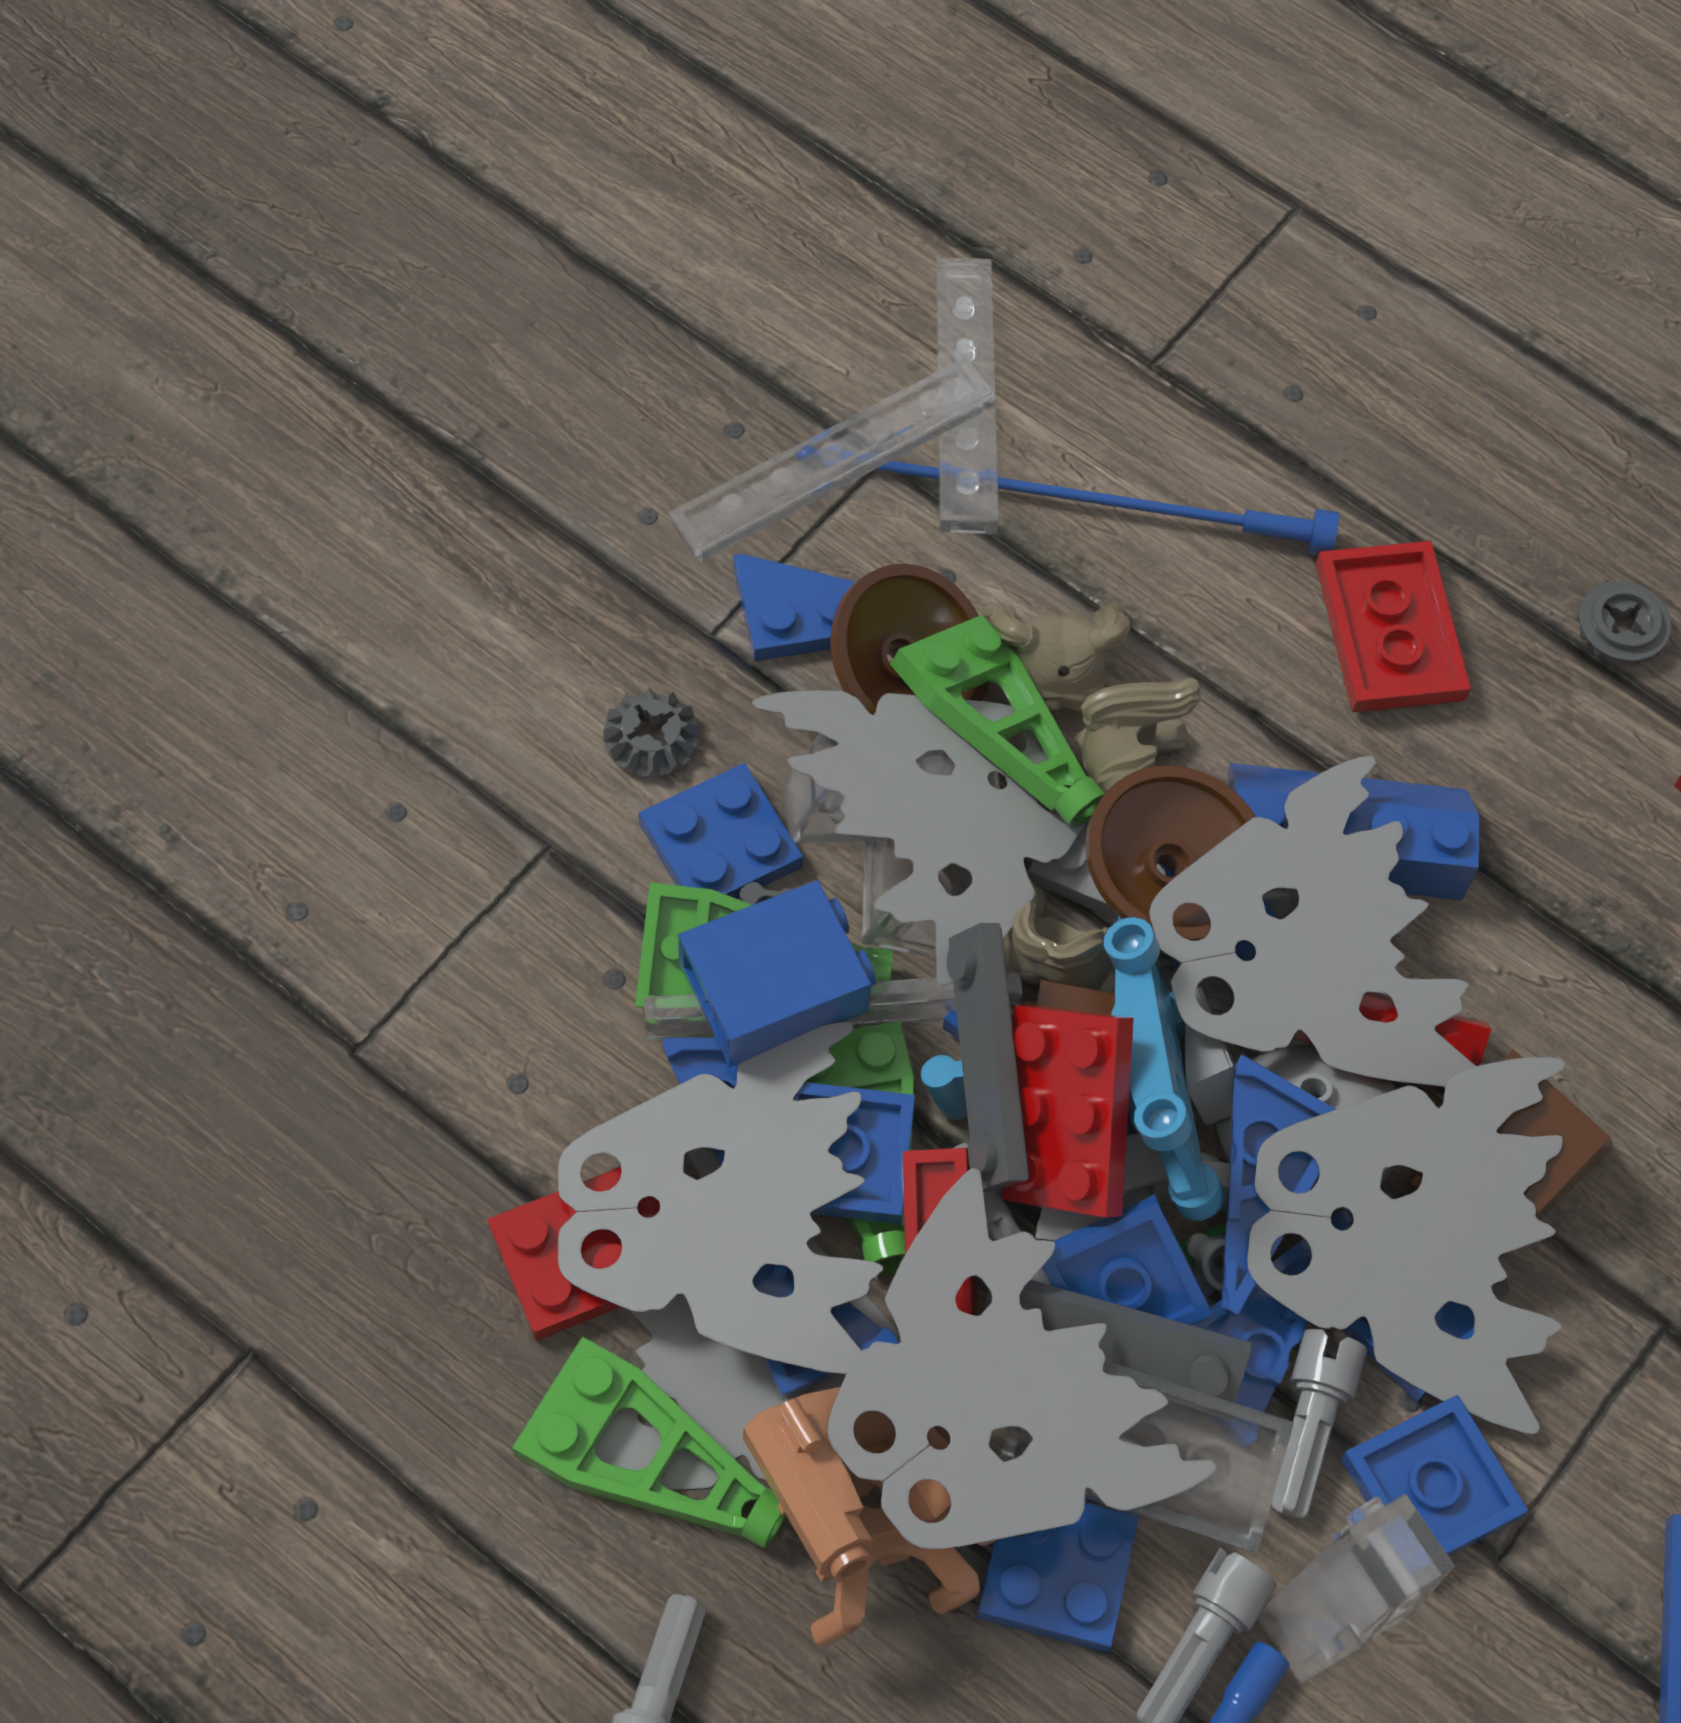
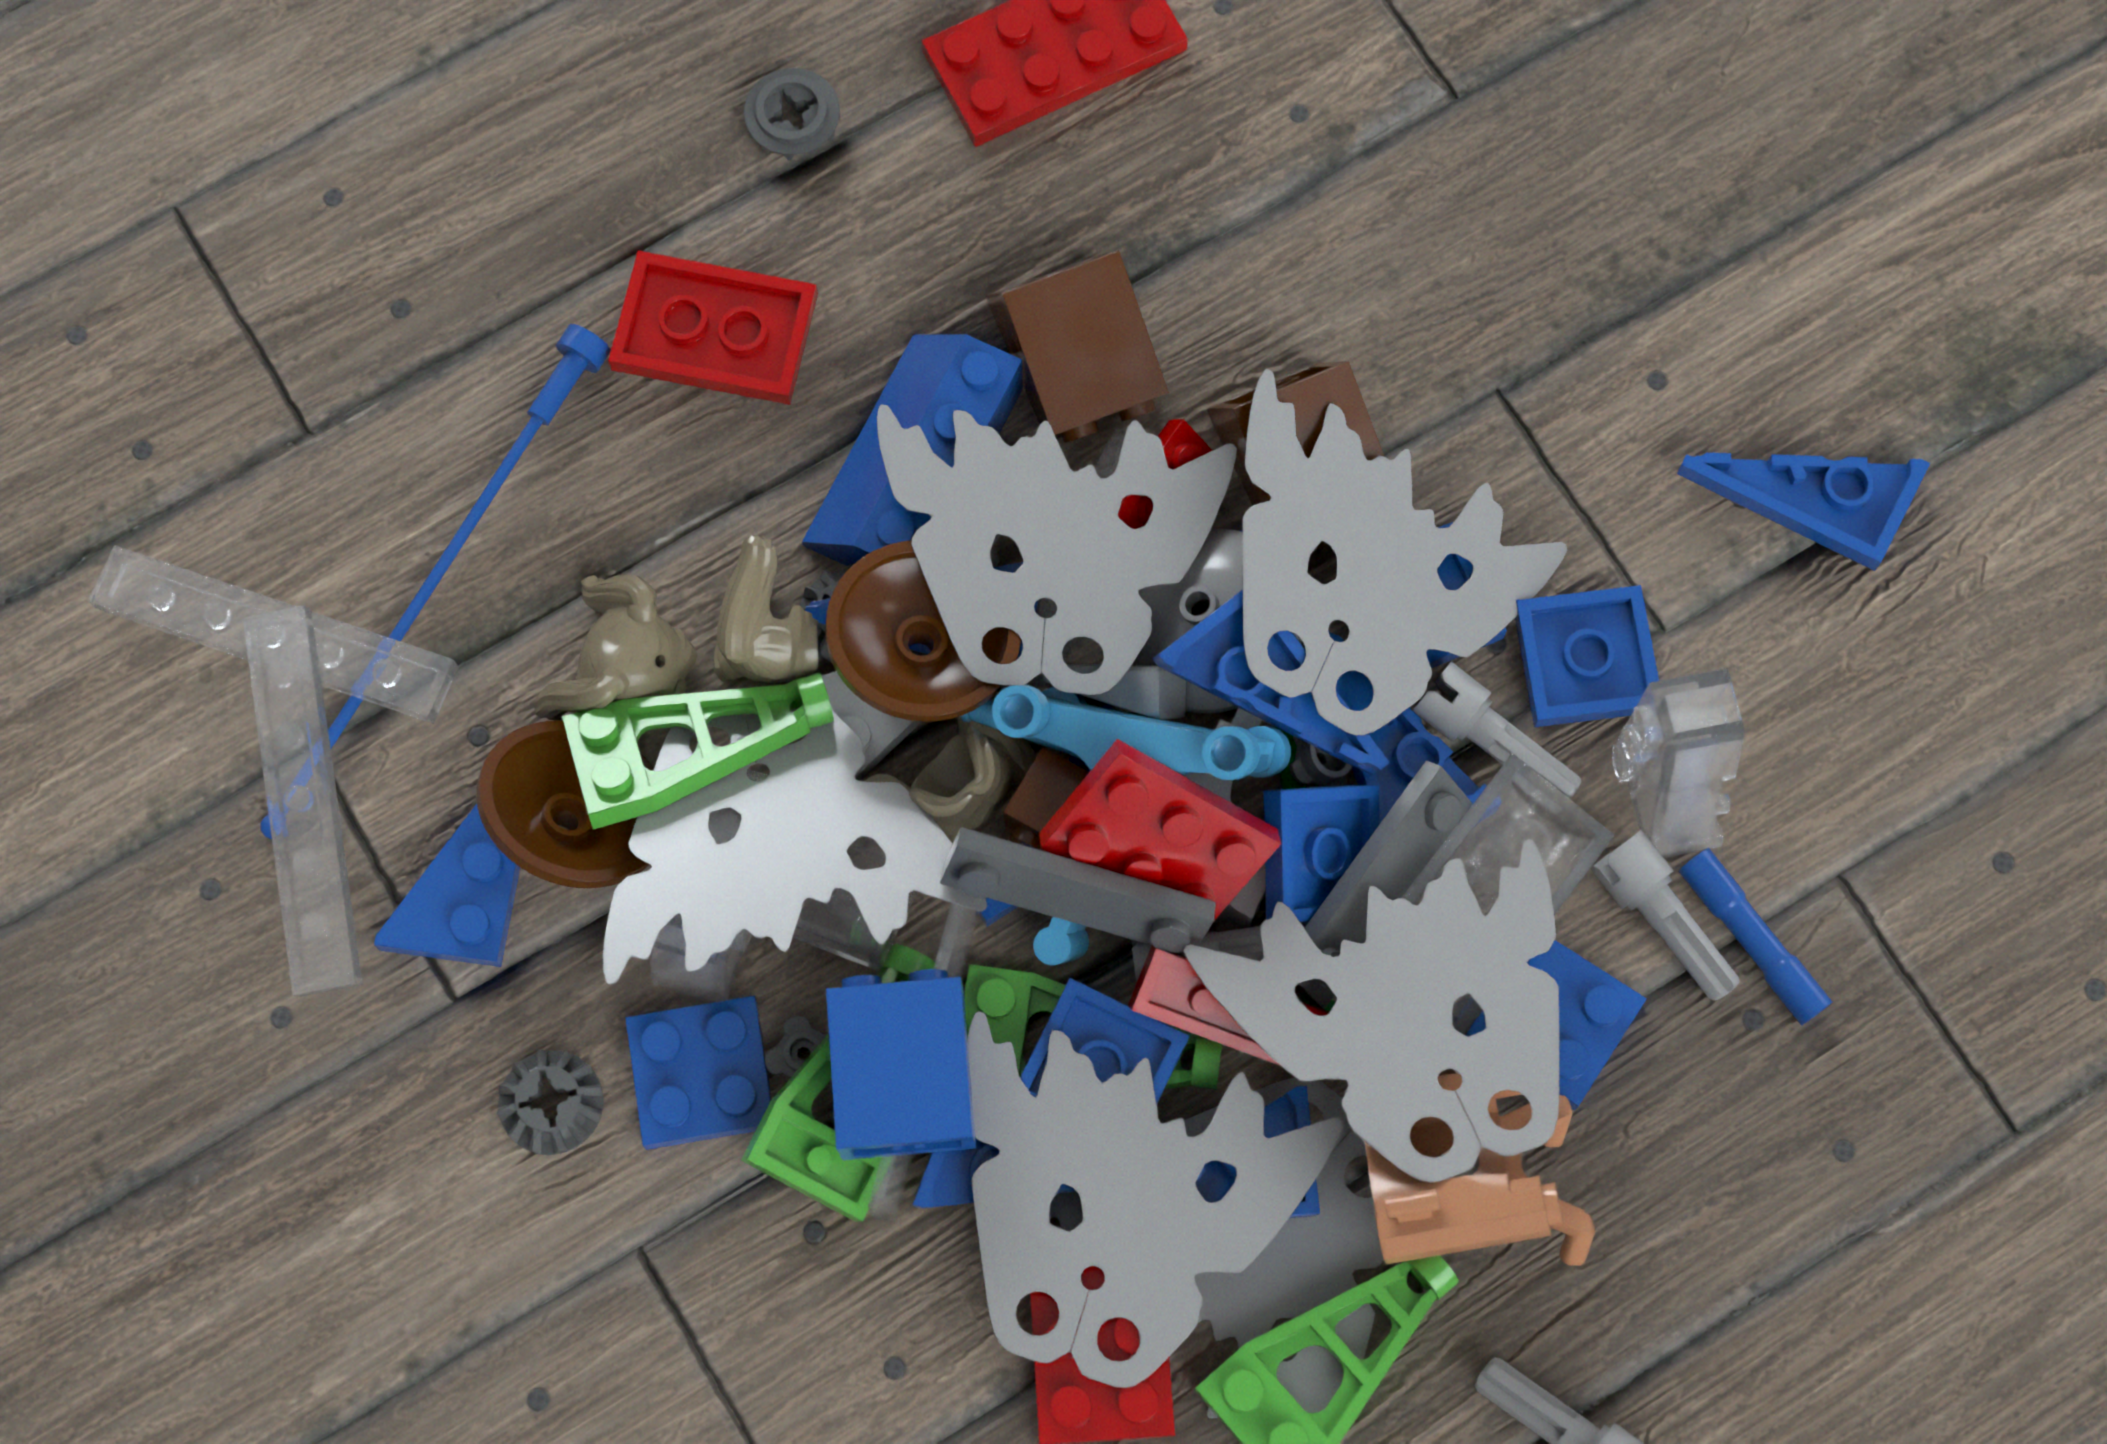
camera: 65 degrees left, 10 degrees up
(1520, 919) = (1080, 345): none -> reddish brown slope

